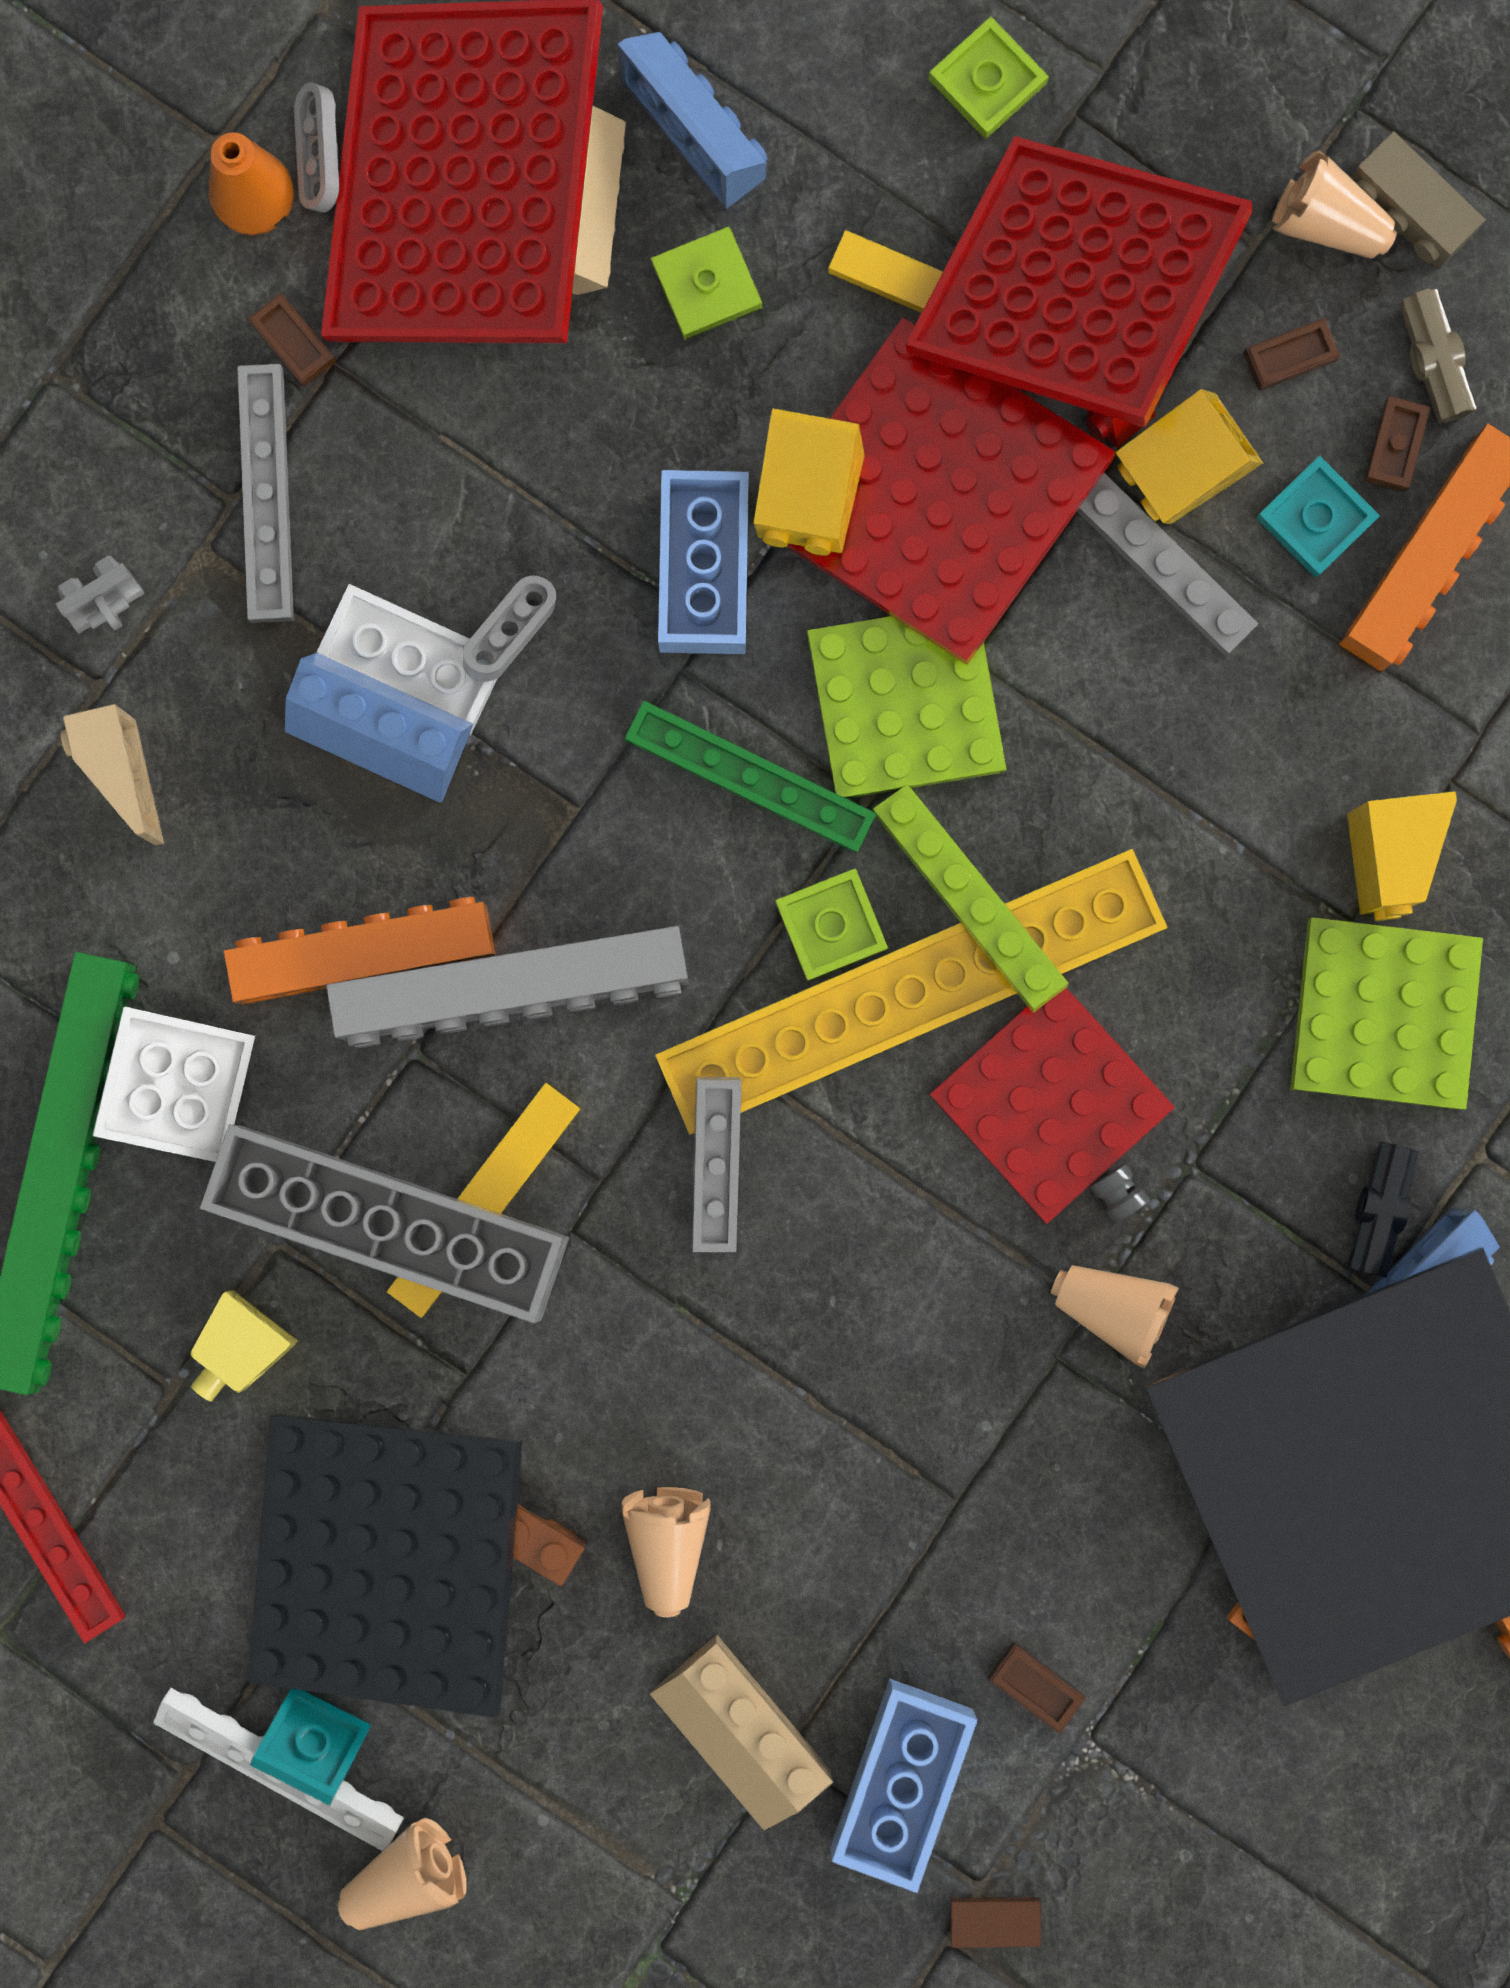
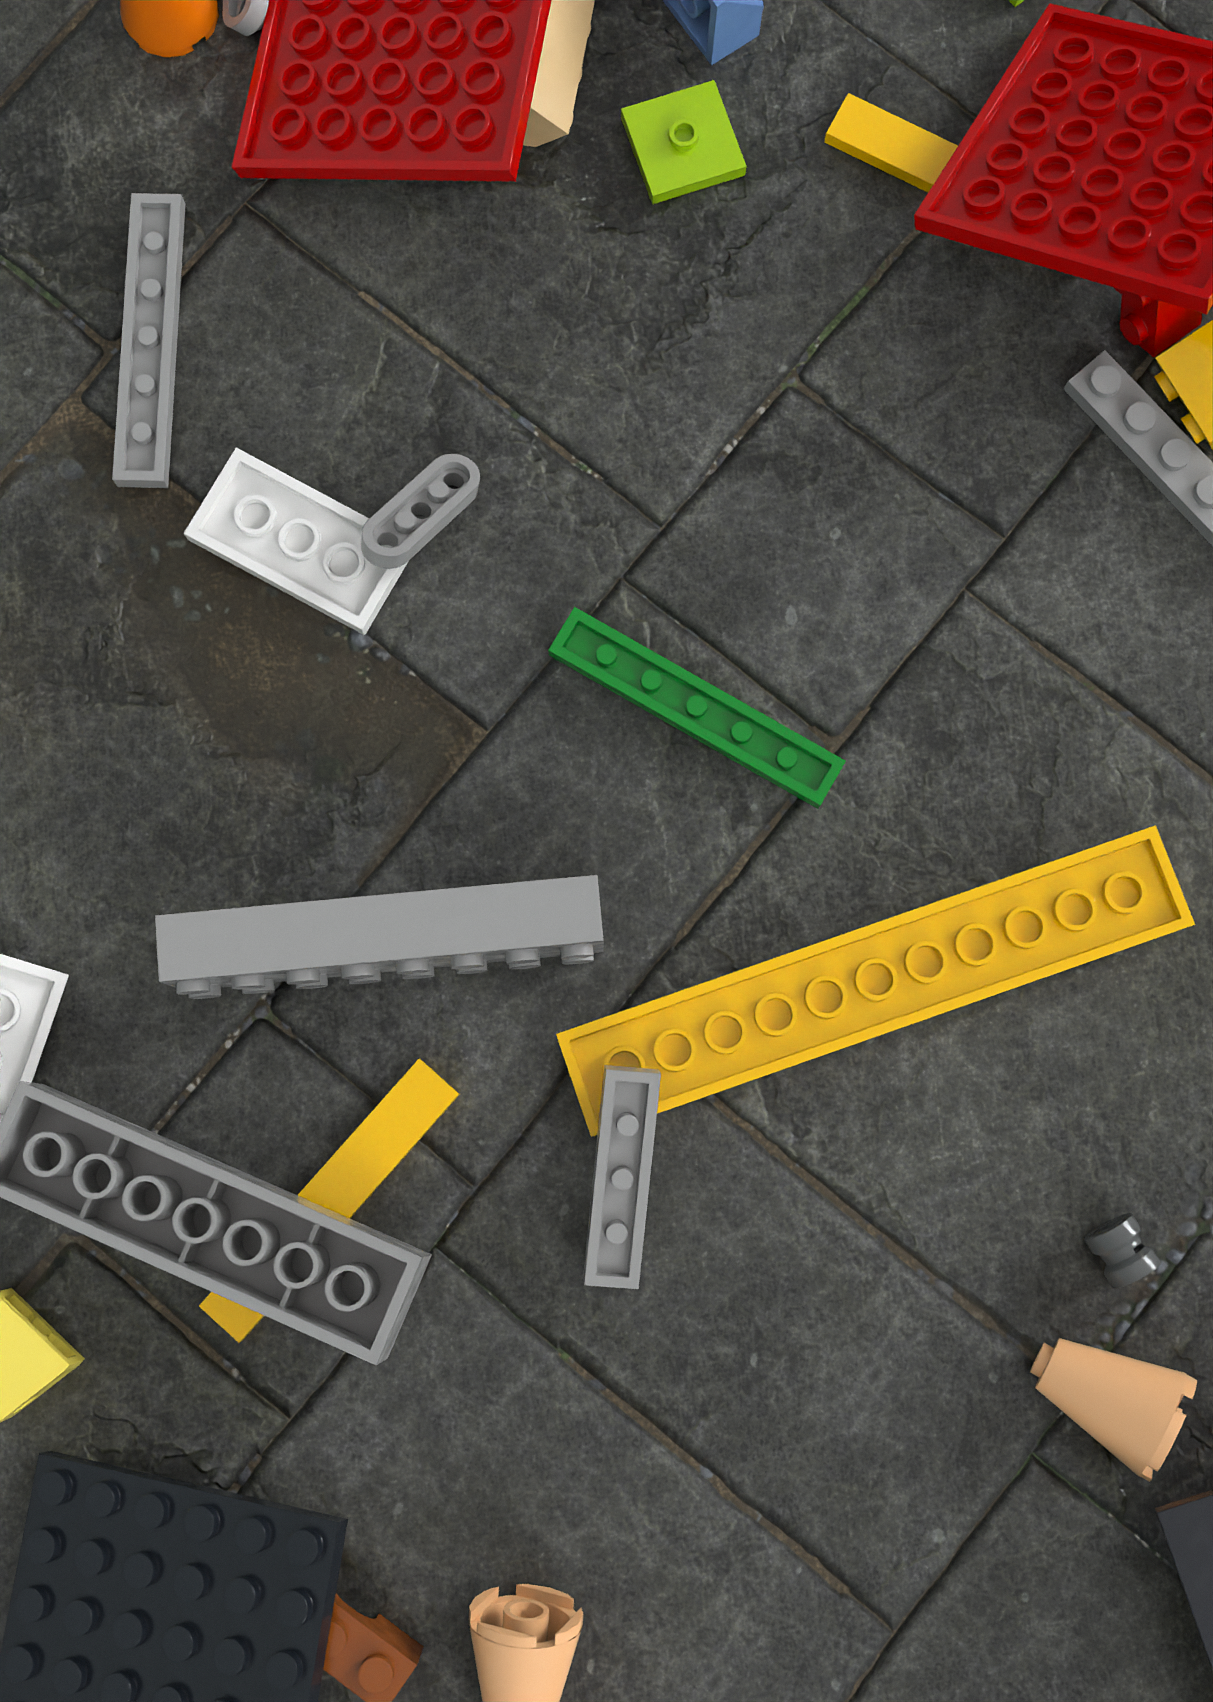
camera: 10 degrees right, 5 degrees down
(292, 340) = (199, 173): reddish brown tile -> none
(345, 953) = (135, 887): orange brick -> none
(375, 725) = (249, 613): medium blue slope -> none
(703, 562) = (658, 450): light blue brick -> none
(808, 481) = (791, 358): yellow slope -> none
(831, 924) = (782, 891): lime plate -> none
(901, 709) = (888, 632): lime plate -> none
(953, 494) = (938, 393): red plate -> none
(970, 898) = (957, 873): lime plate -> none
(1051, 1103) = (1041, 1129): red plate -> none

